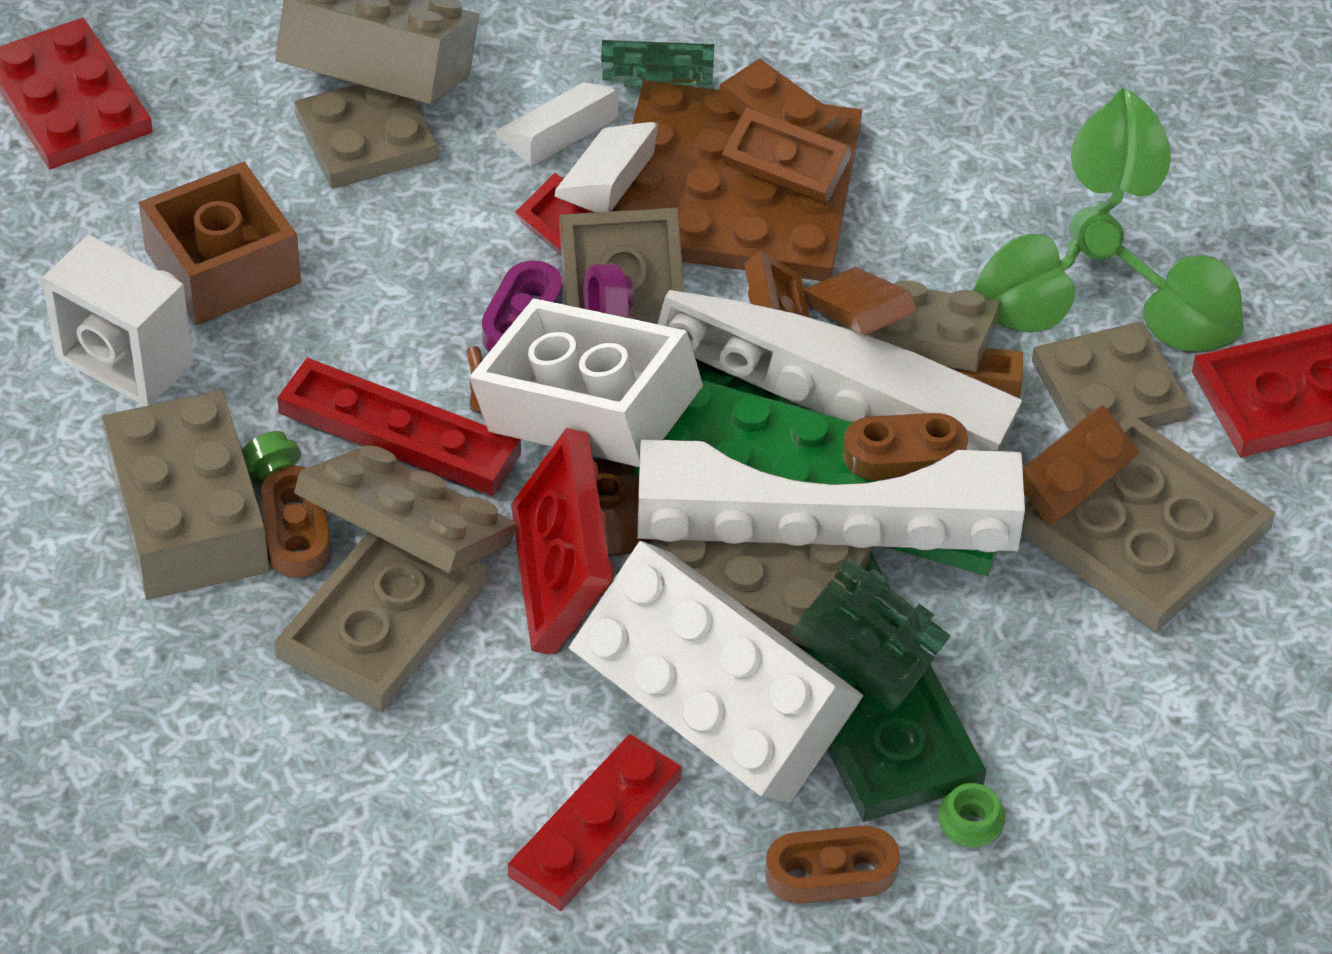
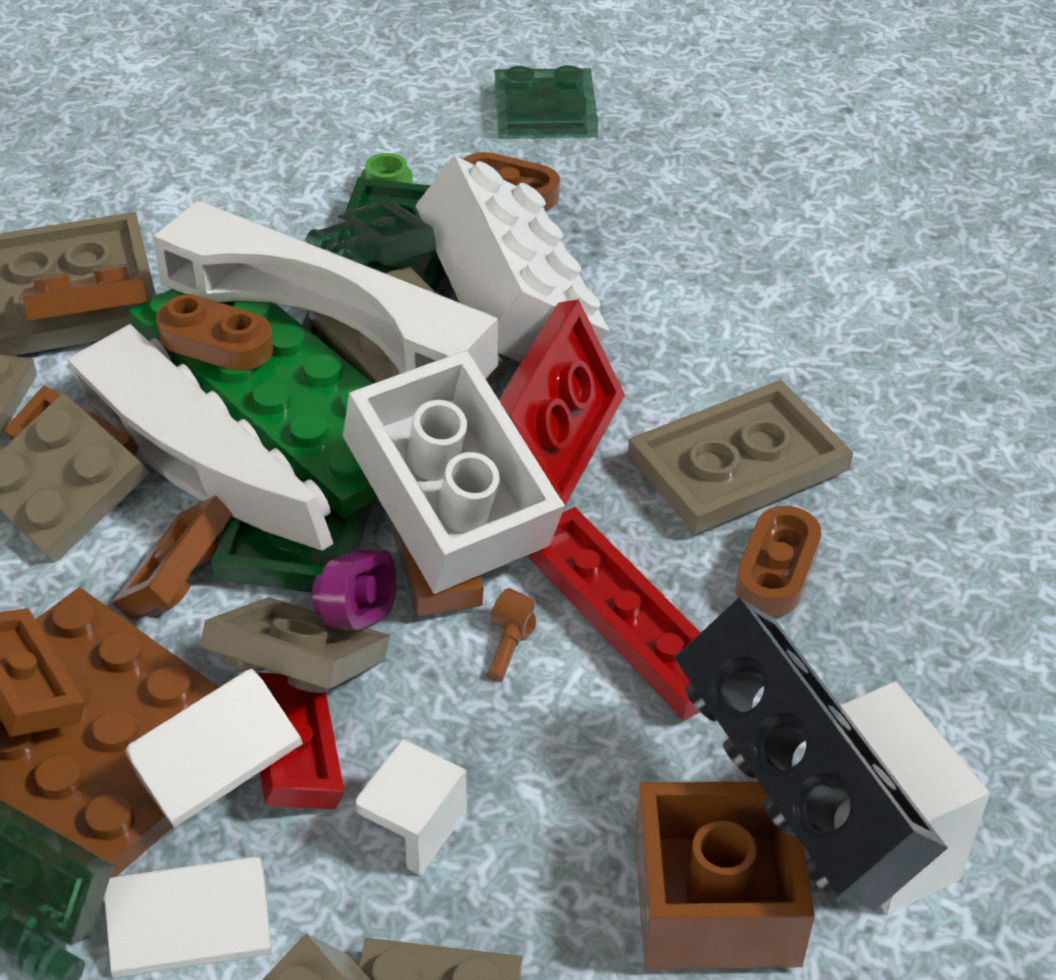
camera: 150 degrees left, 5 degrees down
(182, 243) = (885, 832): none -> black brick
(185, 494) = (886, 604): dark tan brick -> none
(268, 454) = (790, 604): bright green plate -> none
(406, 507) = (675, 508): dark tan plate -> none
(460, 218) = (416, 798): none -> white panel
(515, 294) = (415, 680): magenta plate -> none
(594, 822) = (660, 269): red plate -> none
(860, 300) = (113, 485): dark orange tile -> none

